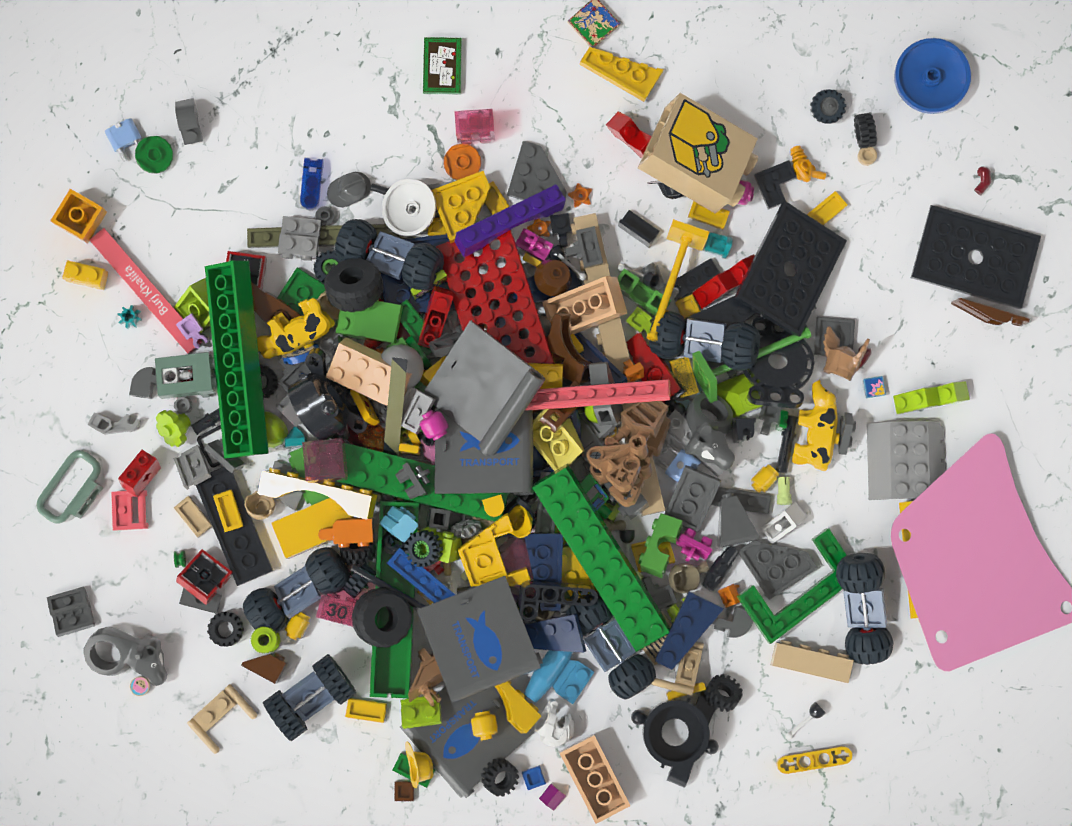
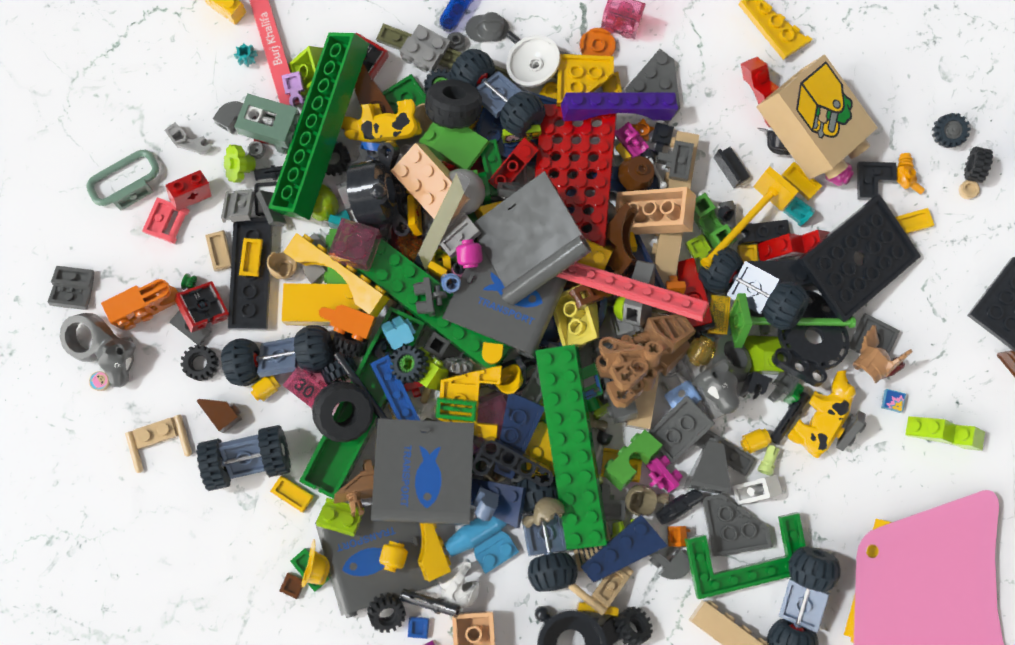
camera: 25 degrees right, 5 degrees down
(145, 599) = (139, 304): none -> orange brick
(258, 644) = (222, 384): lime hose -> none
(427, 457) = (454, 283): none -> medium blue cone
(481, 563) = (473, 410): none -> green tile
(547, 642) = (486, 504): none -> sand blue leg
(556, 749) = (451, 609): none -> black pin
(579, 200) = (691, 112): orange plate -> none
(602, 626) = (544, 511): none -> dark tan hair
(681, 421) = (701, 351): none -> clear yellow head
(903, 458) = (895, 478): light grey slope -> none

